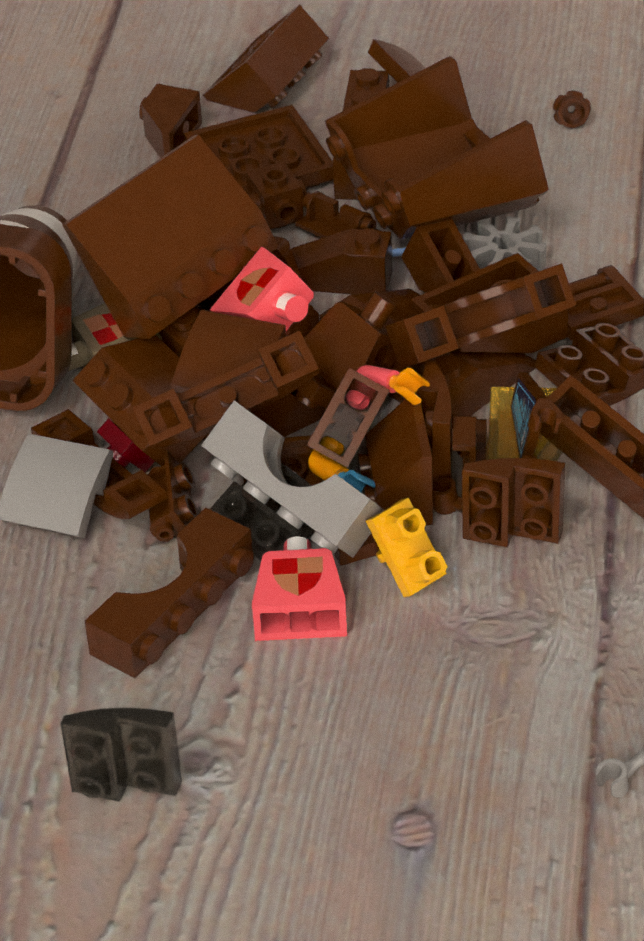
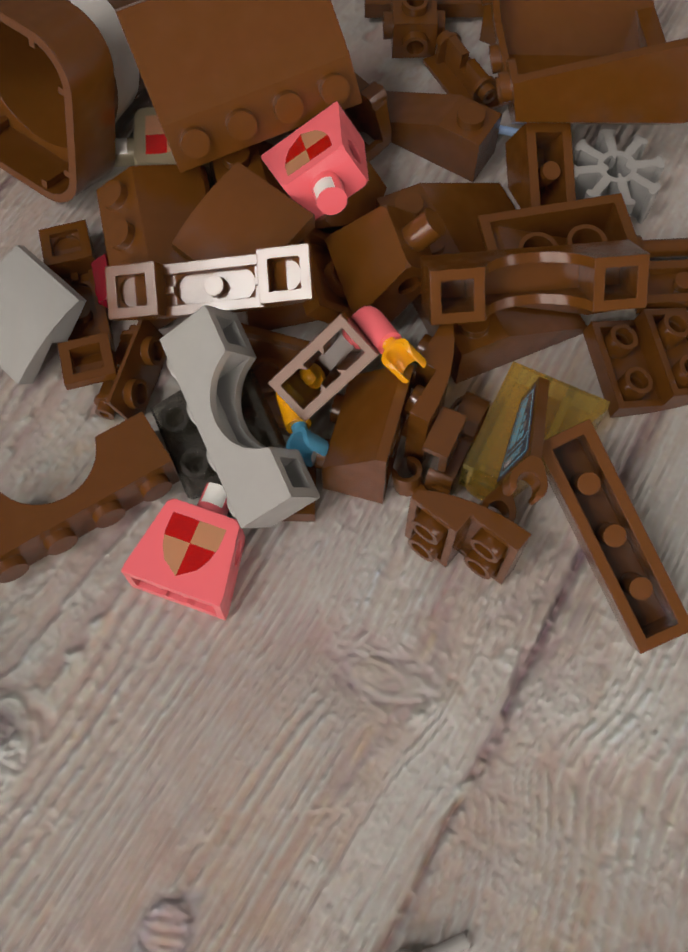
camera: 20 degrees right, 25 degrees up
(406, 547) = (325, 548): yellow hips -> none

